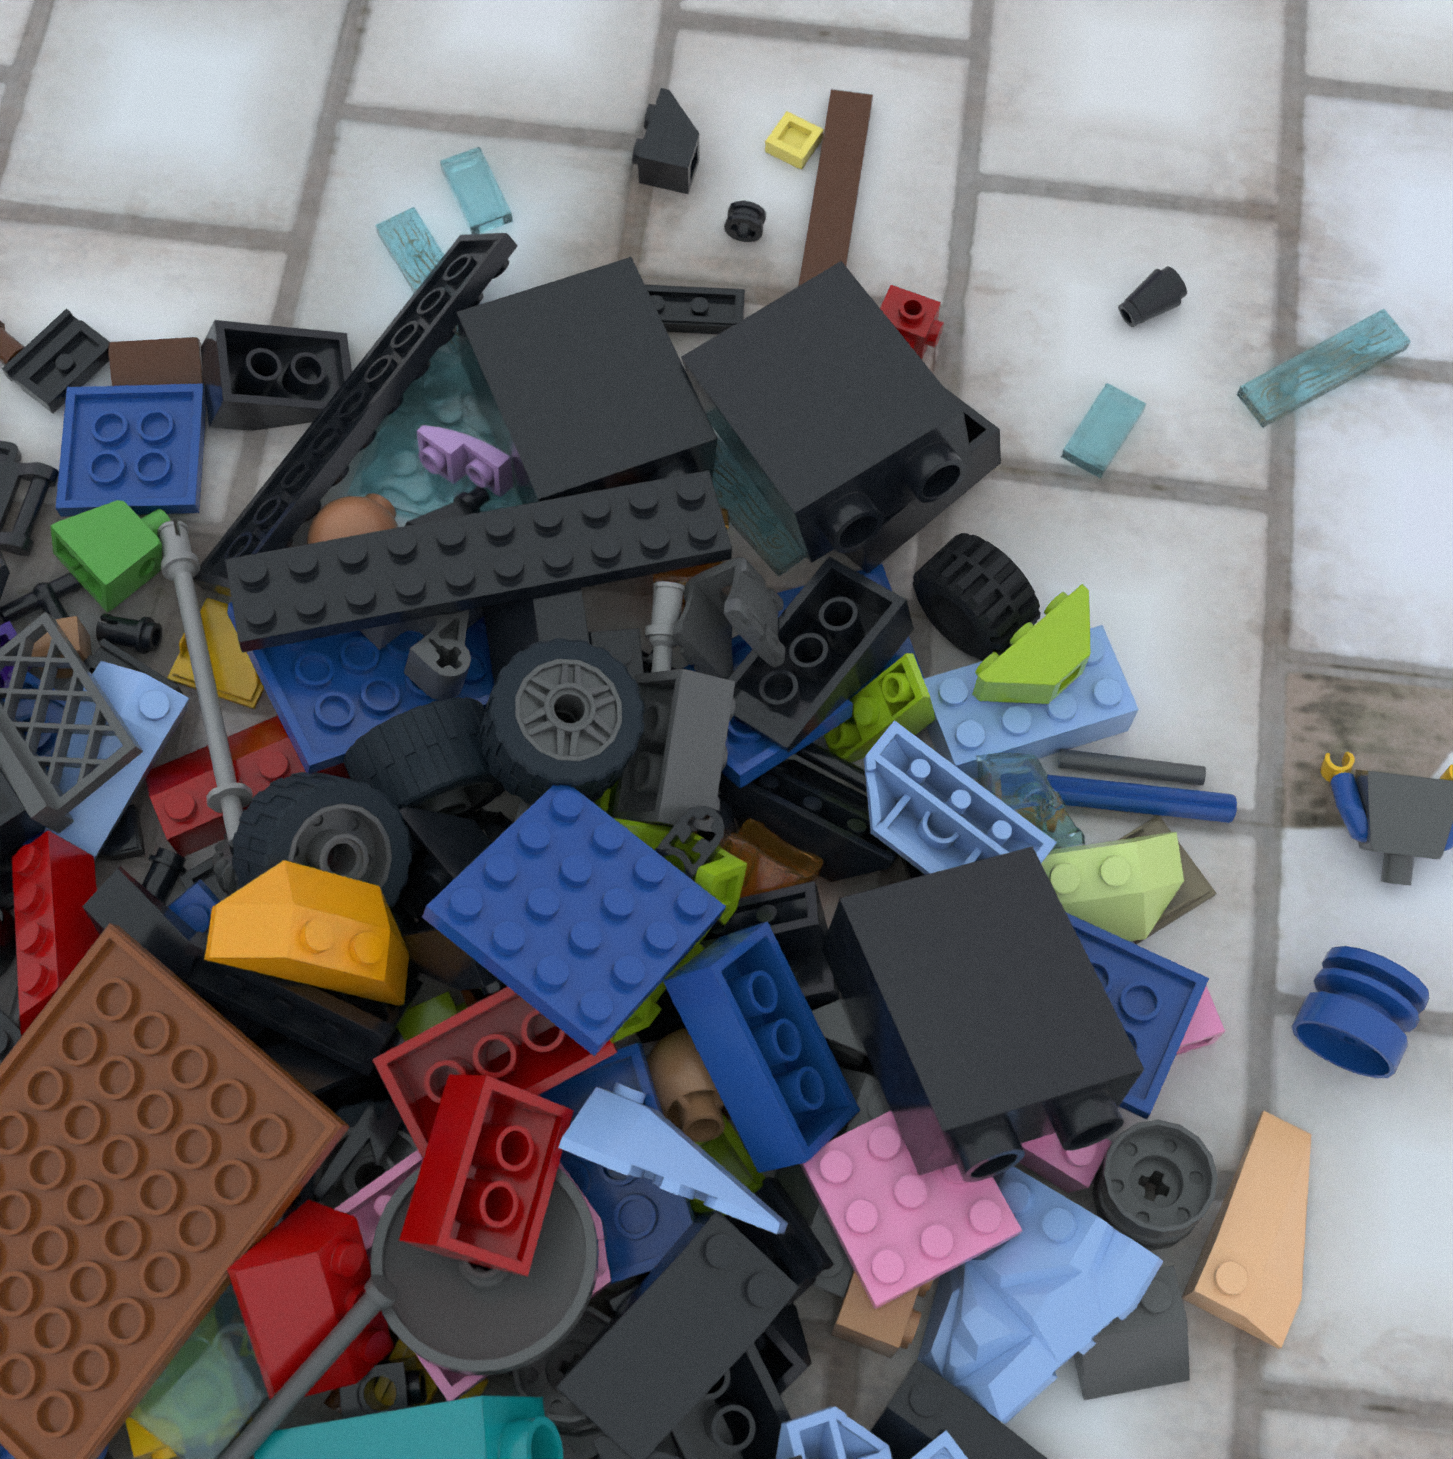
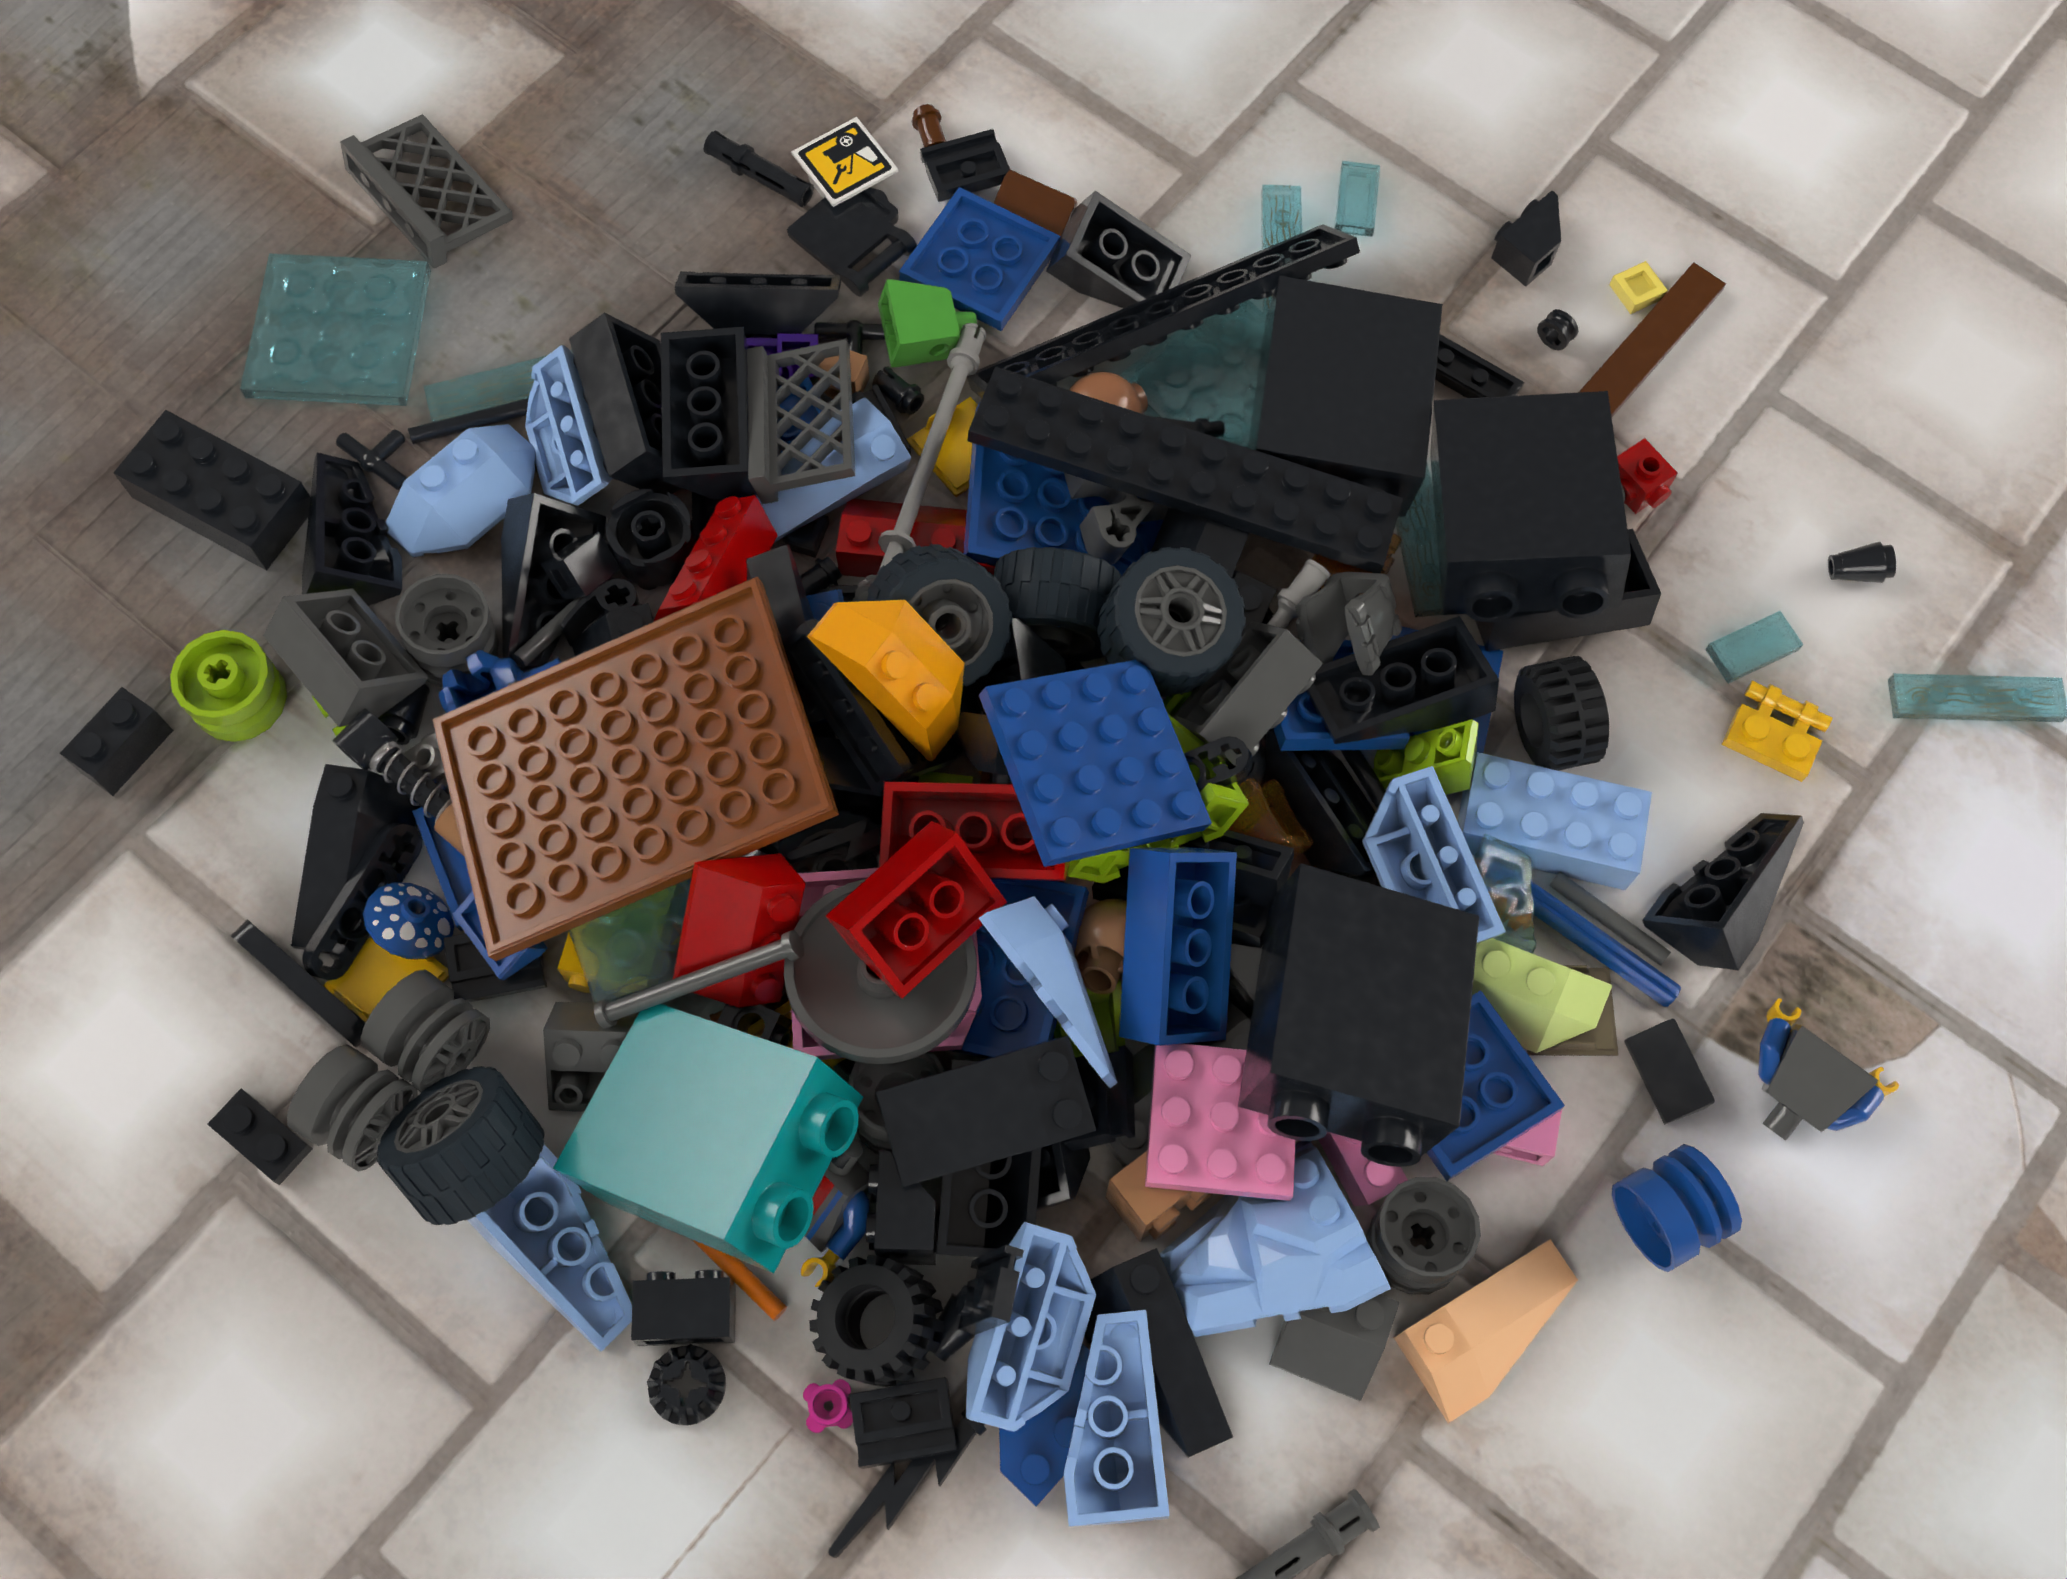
camera: 30 degrees right, 0 degrees up
(459, 454) = (1222, 390): lavender slope -> none
(1042, 655) = (1582, 785): lime slope -> none
(1171, 511) = (1772, 741): none -> yellow plate
(1225, 686) = (1726, 903): none -> black wedge
(1272, 882) = (1669, 1071): none -> black slope

